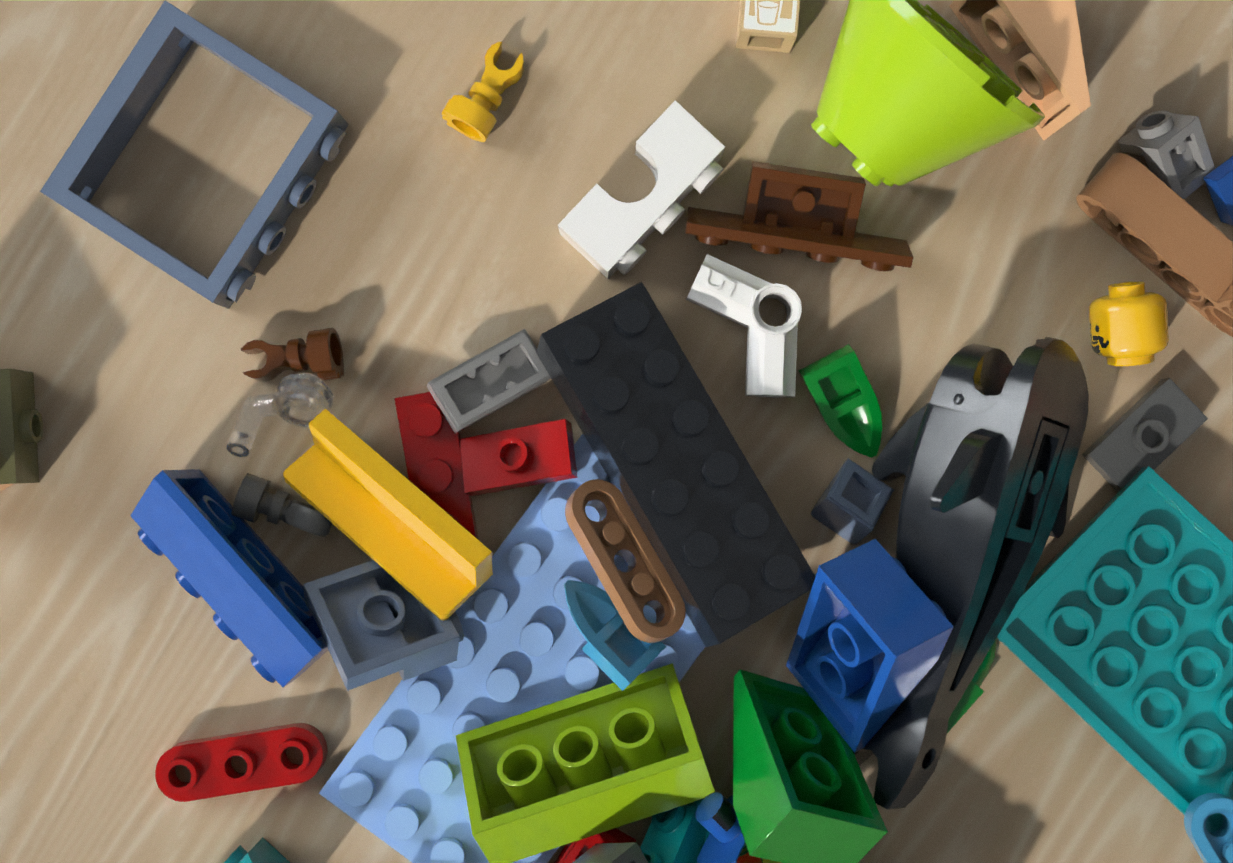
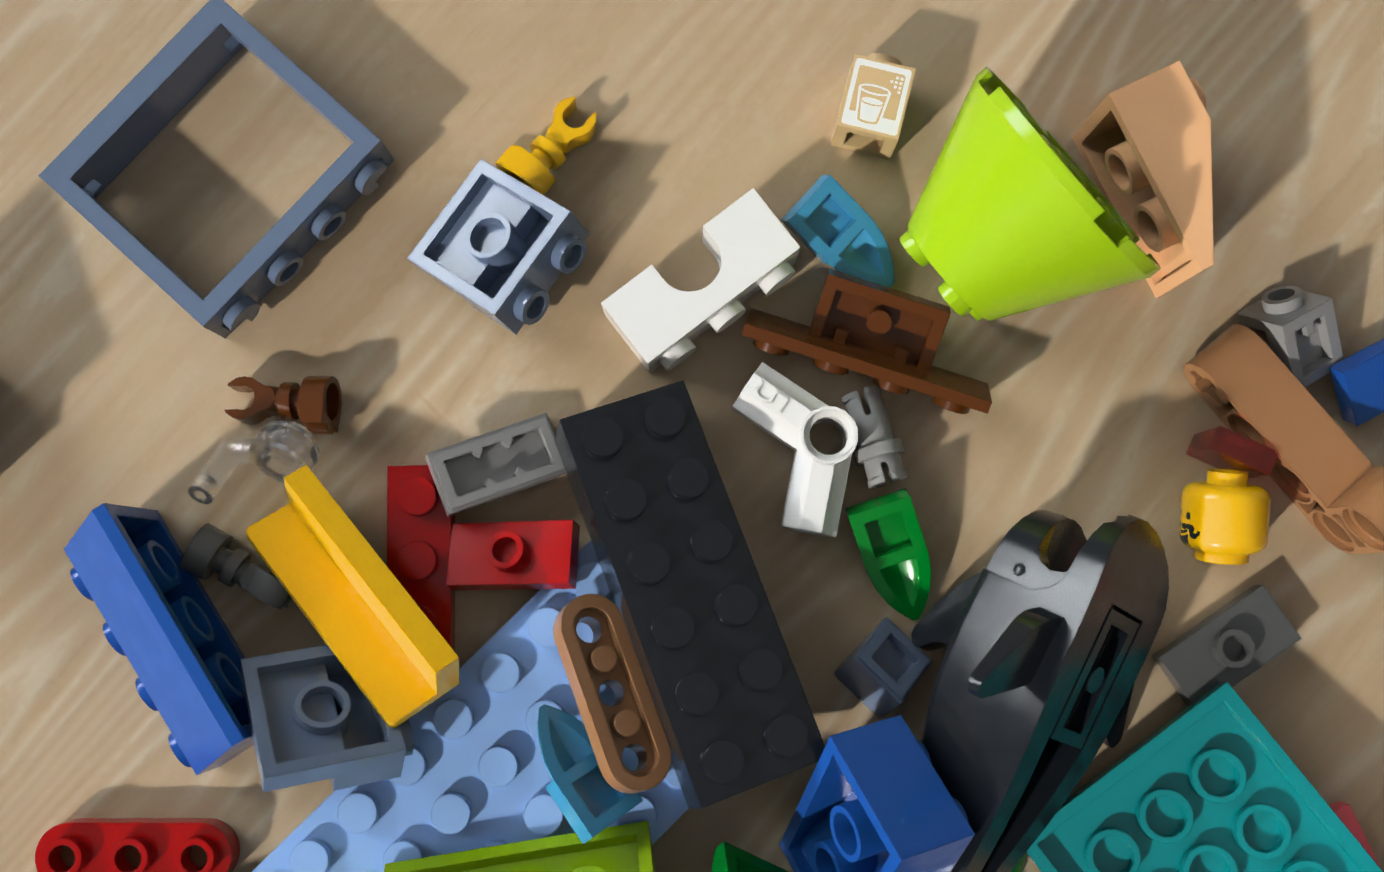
camera: 10 degrees right, 5 degrees down
(460, 188) = (501, 246): none -> sand blue plate
(757, 127) = (841, 232): none -> dark azure plate
(817, 307) = (875, 438): none -> light grey pin
(1128, 266) = (1232, 451): none -> clear red tile

